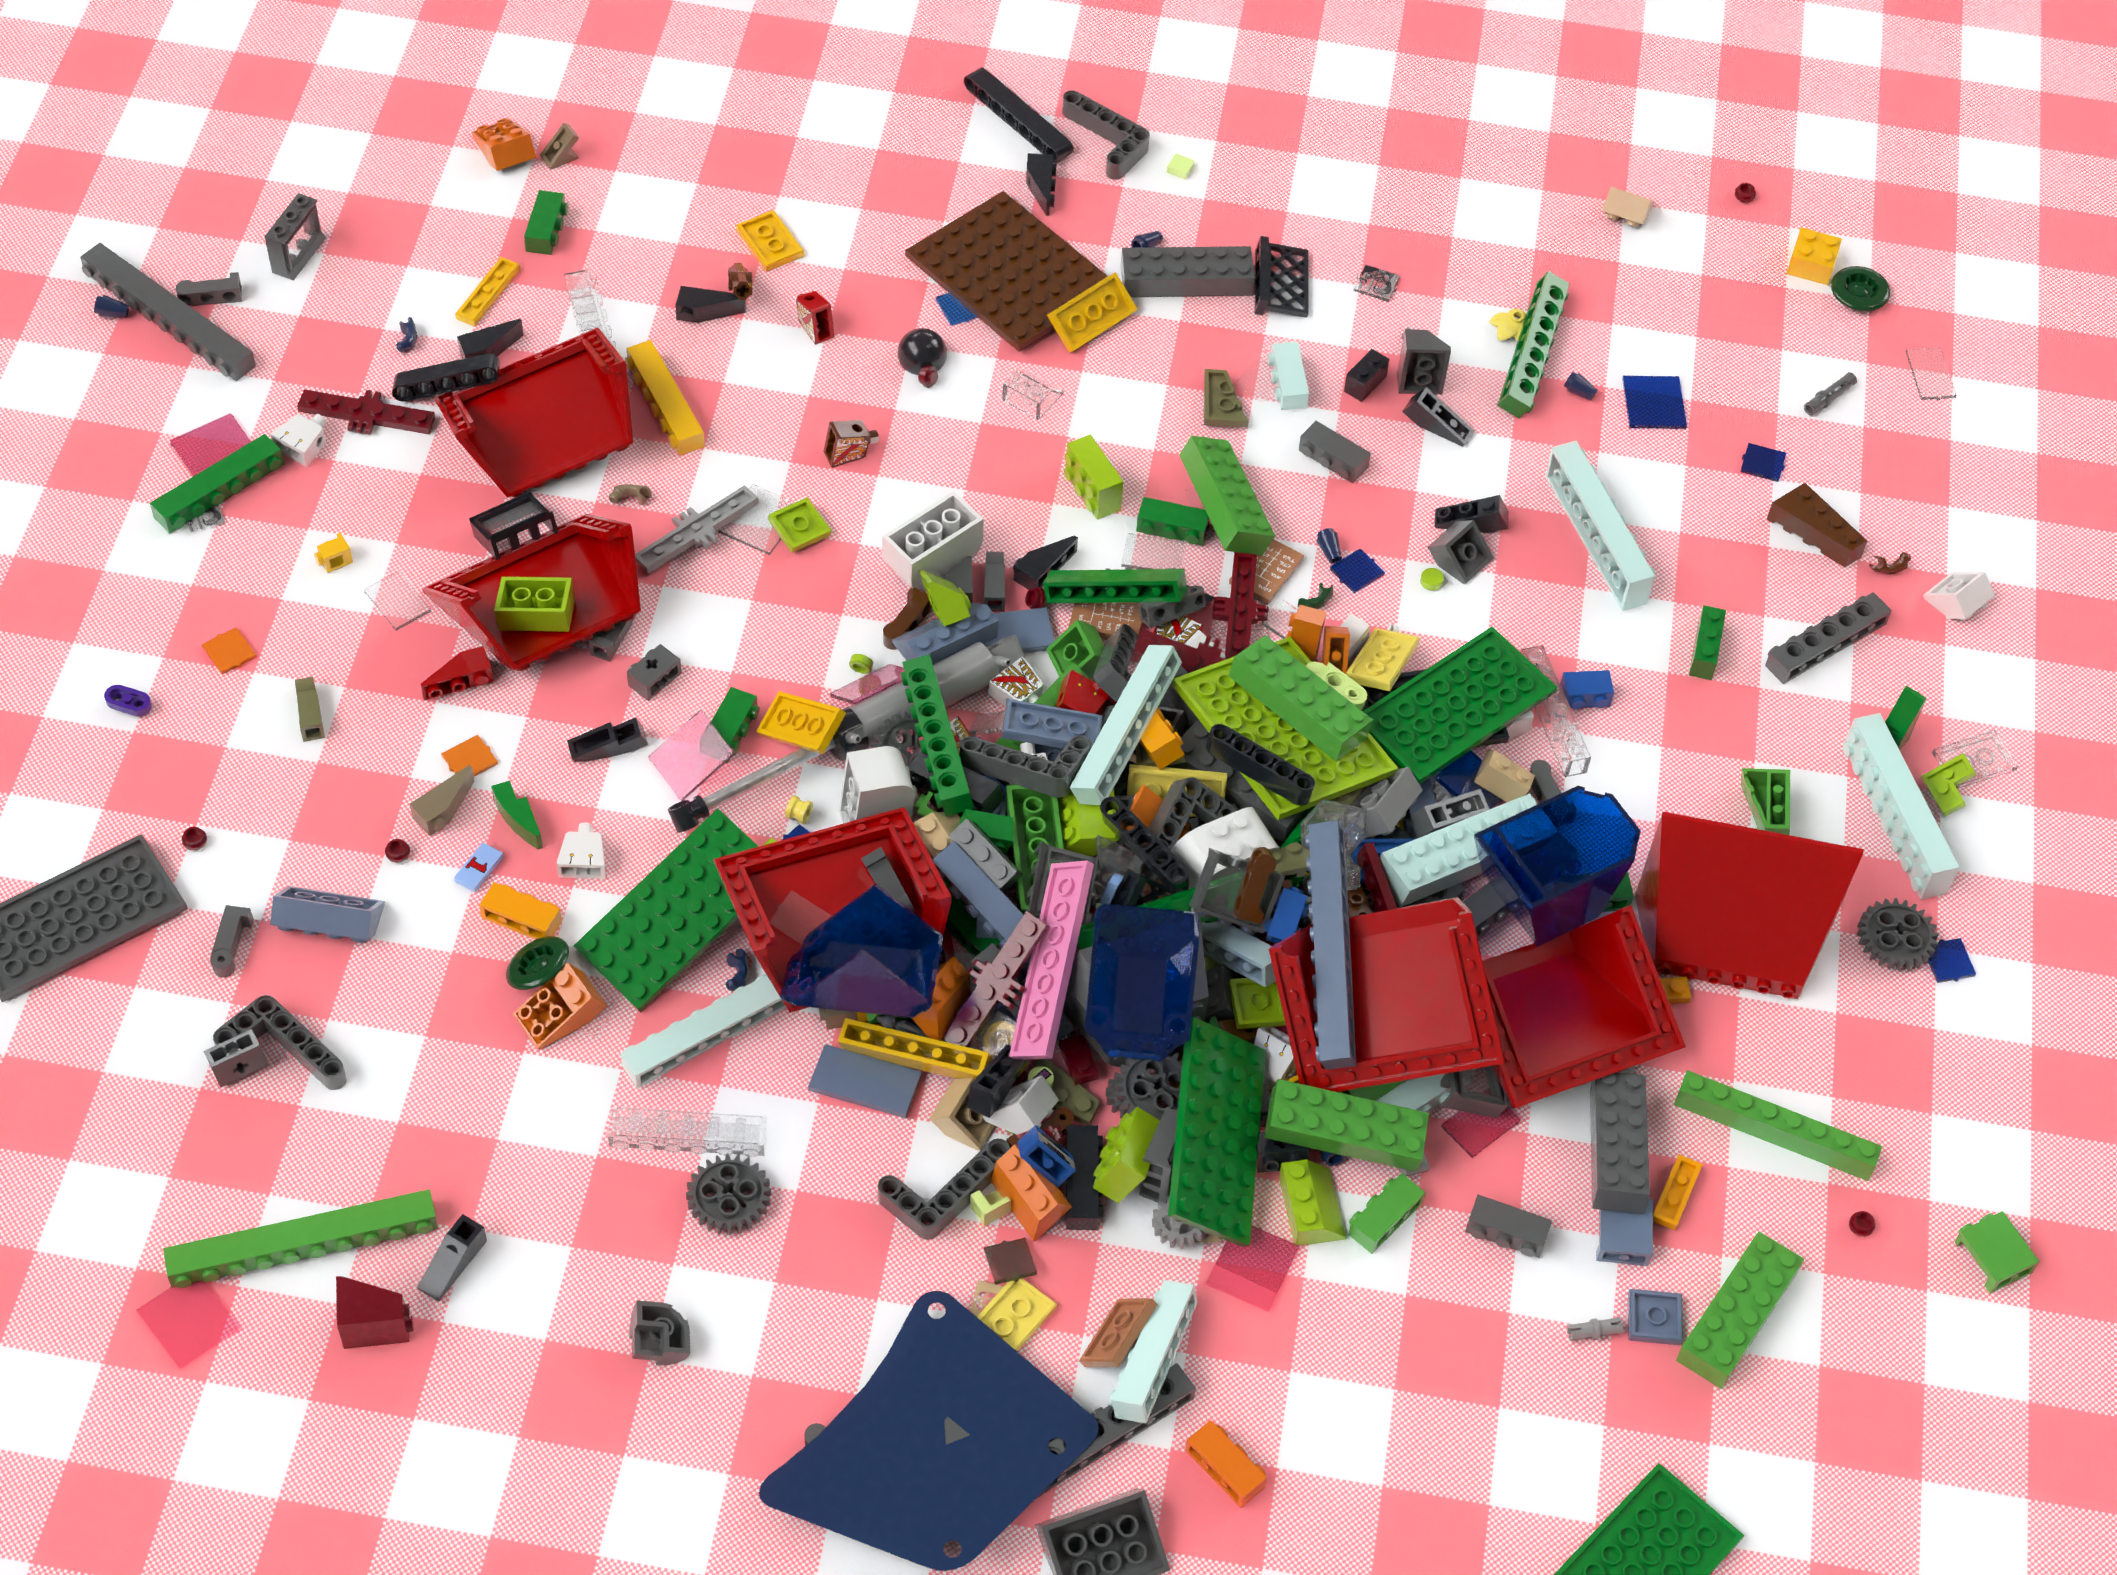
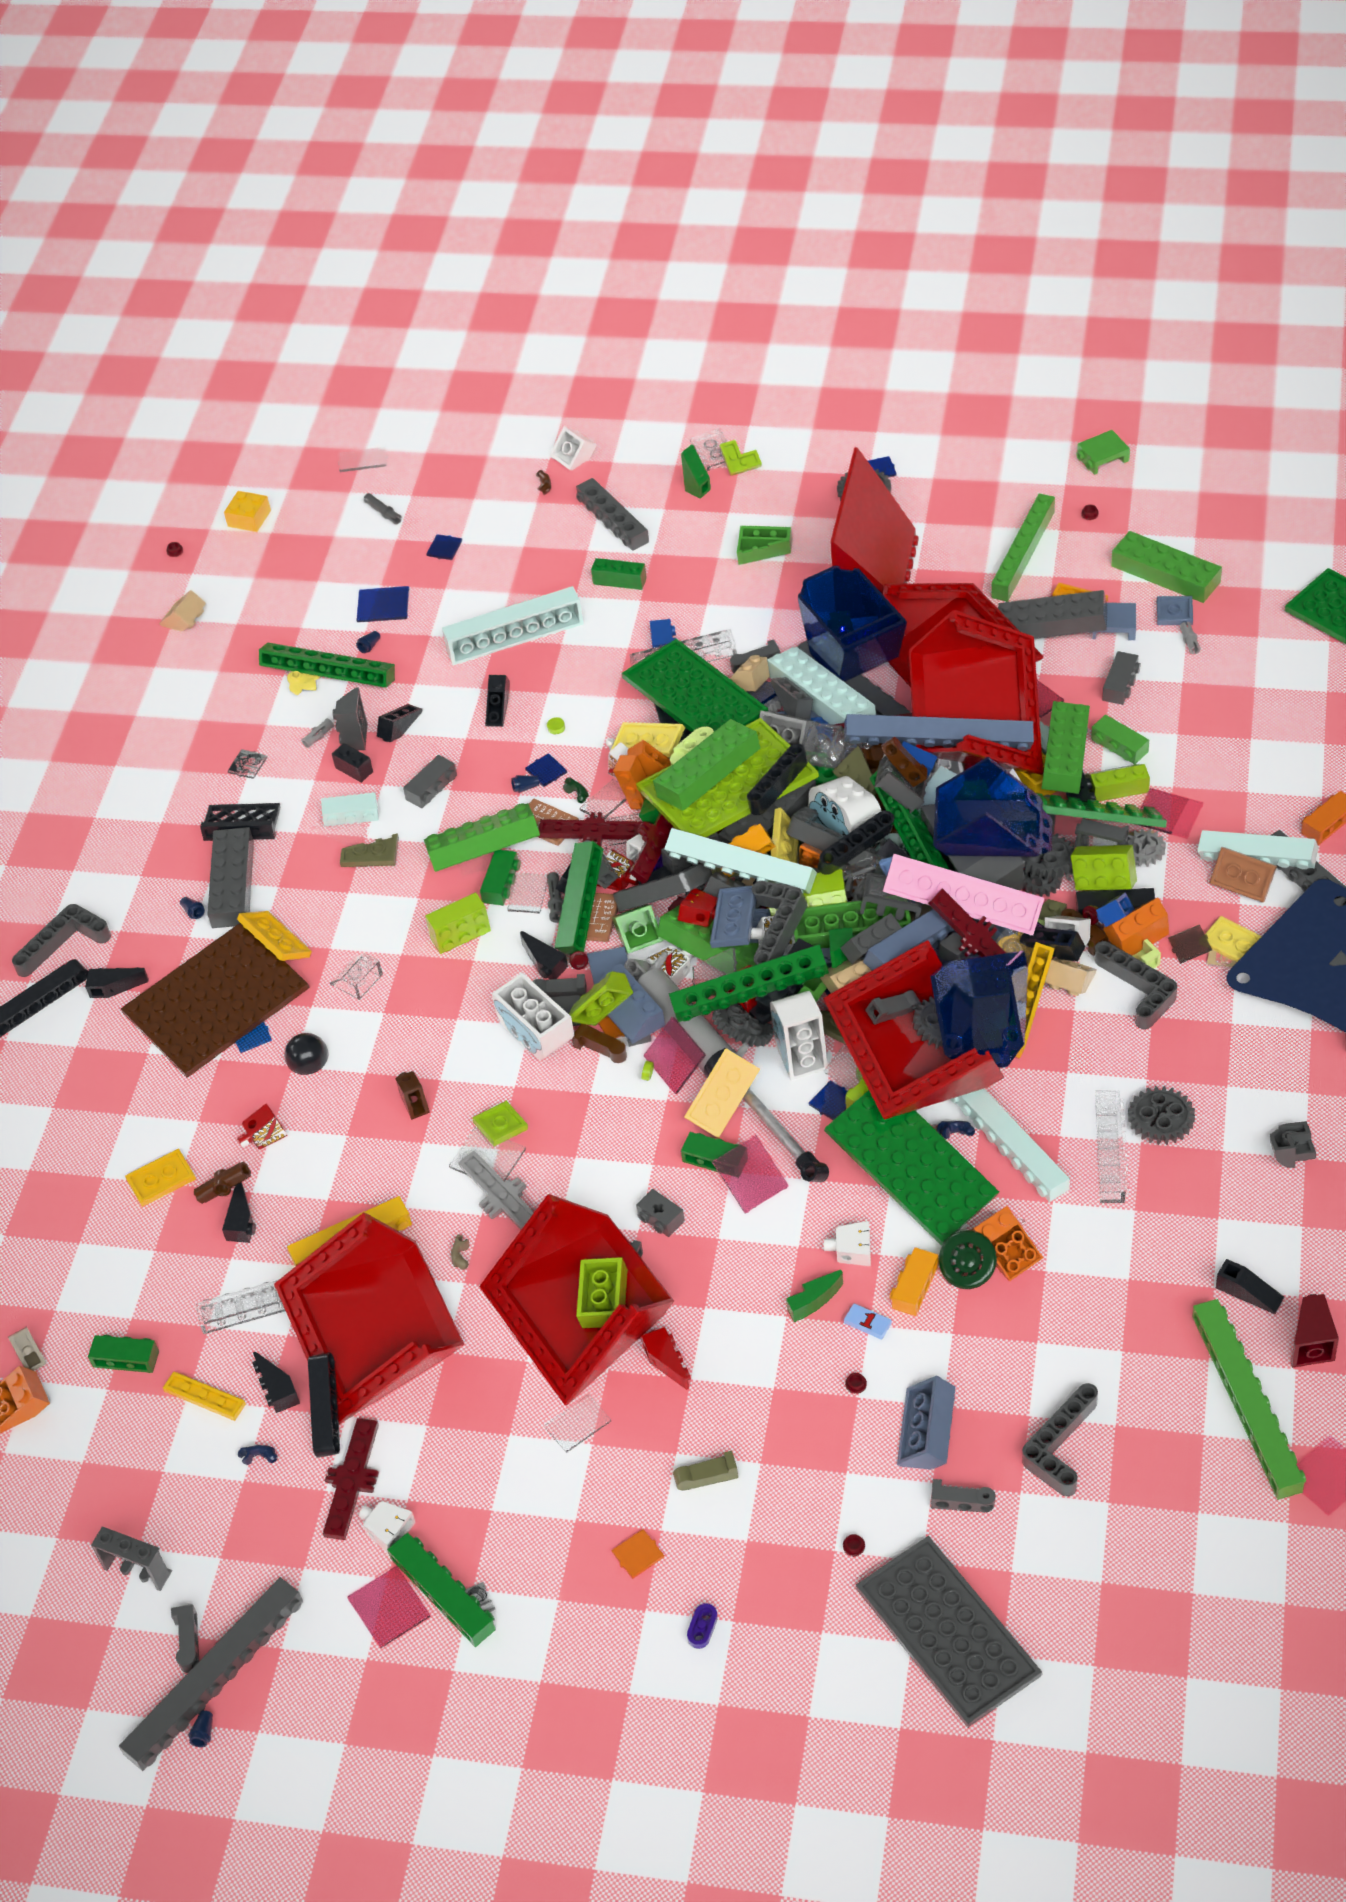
camera: 80 degrees left, 5 degrees down
(236, 1058) = (1086, 1467): dark grey brick -> none
(334, 554) = (528, 1476): yellow brick -> none
(440, 804) = (806, 1352): dark tan slope -> none
(472, 753) = (752, 1344): orange piece -> none
(509, 520) = (501, 1331): black window -> none
(608, 741) = (734, 1239): black slope -> none
(799, 809) = (797, 1100): light yellow wheel -> none
(865, 1081) = (1046, 1042): sand blue tile -> none
(928, 376) = (335, 1046): dark red plate -> none
(1180, 166) = (103, 890): yellowish green tile -> none
(1461, 551) = (530, 707): dark grey slope -> none
(1818, 524) = (509, 515): reddish brown wedge -> none
(1860, 288) = (281, 489): dark green wheel -> none
(1900, 806) = (762, 478): light aqua brick -> none

